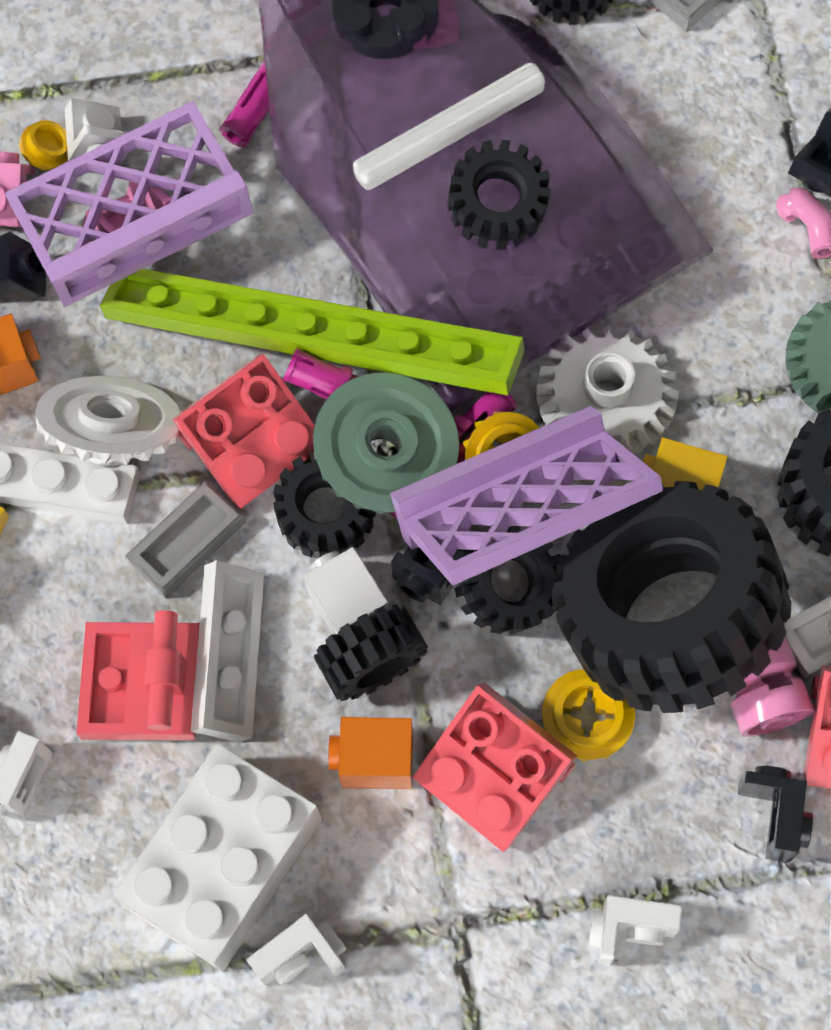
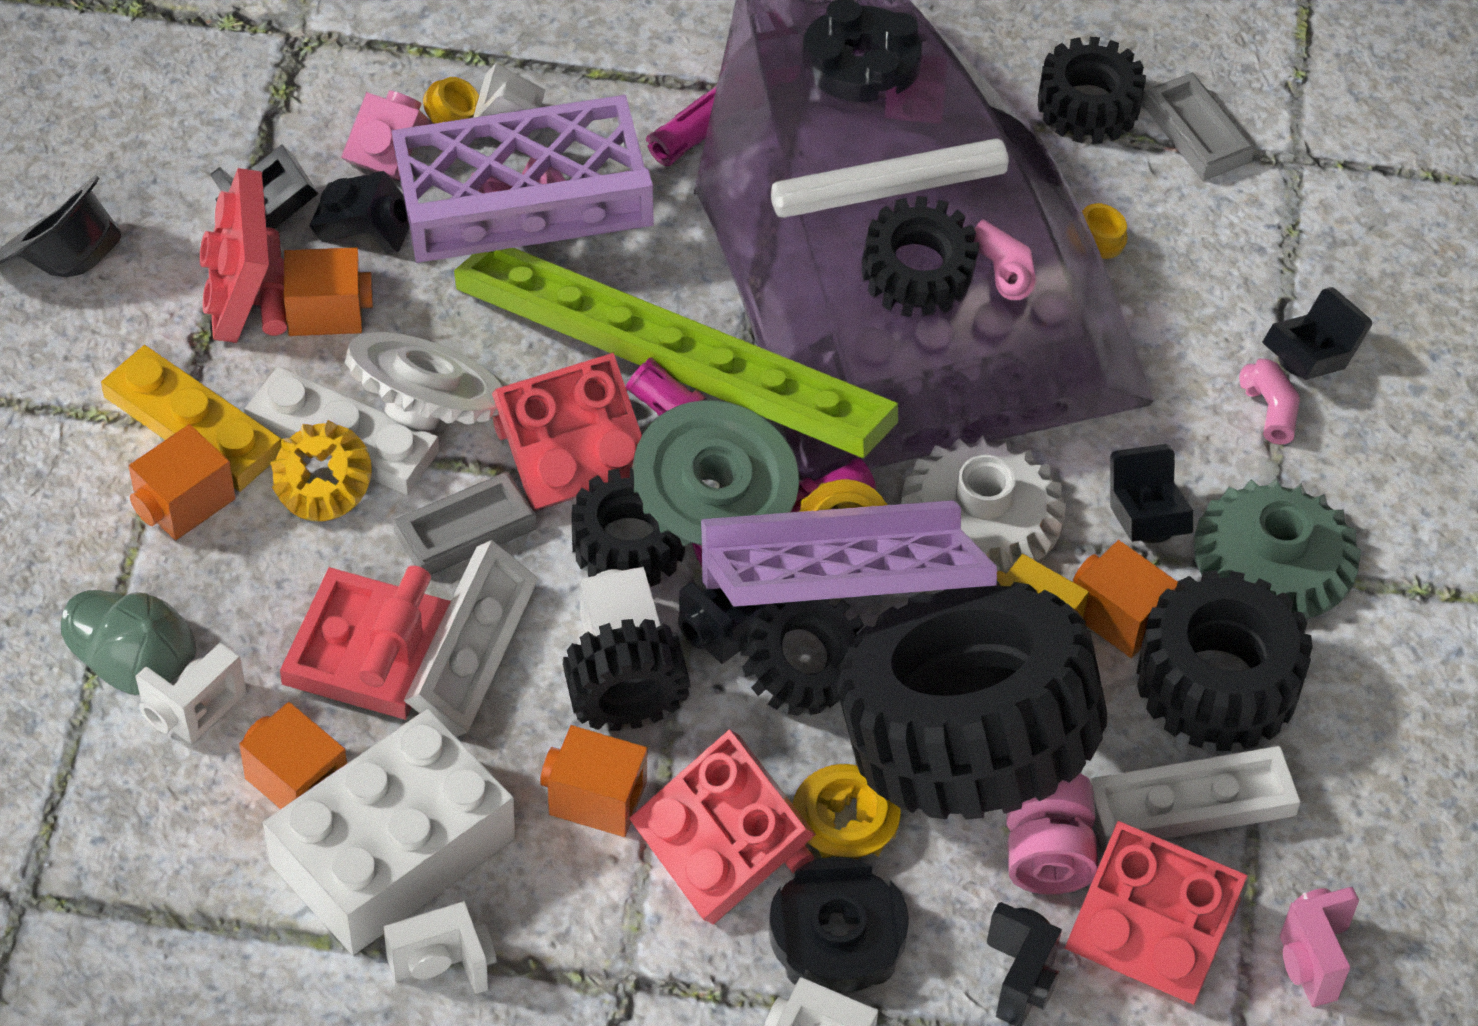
camera: 10 degrees right, 15 degrees down
(71, 519) = (321, 499): none -> yellow gear
(114, 815) = (288, 755): none -> orange brick
(574, 173) = (1011, 261): none -> bright pink arm
(628, 102) = (1107, 228): none -> yellow plate
(629, 791) = (838, 962): none -> black plate
(741, 346) = (1146, 494): none -> black bracket
(754, 444) = (1121, 595): none -> orange brick

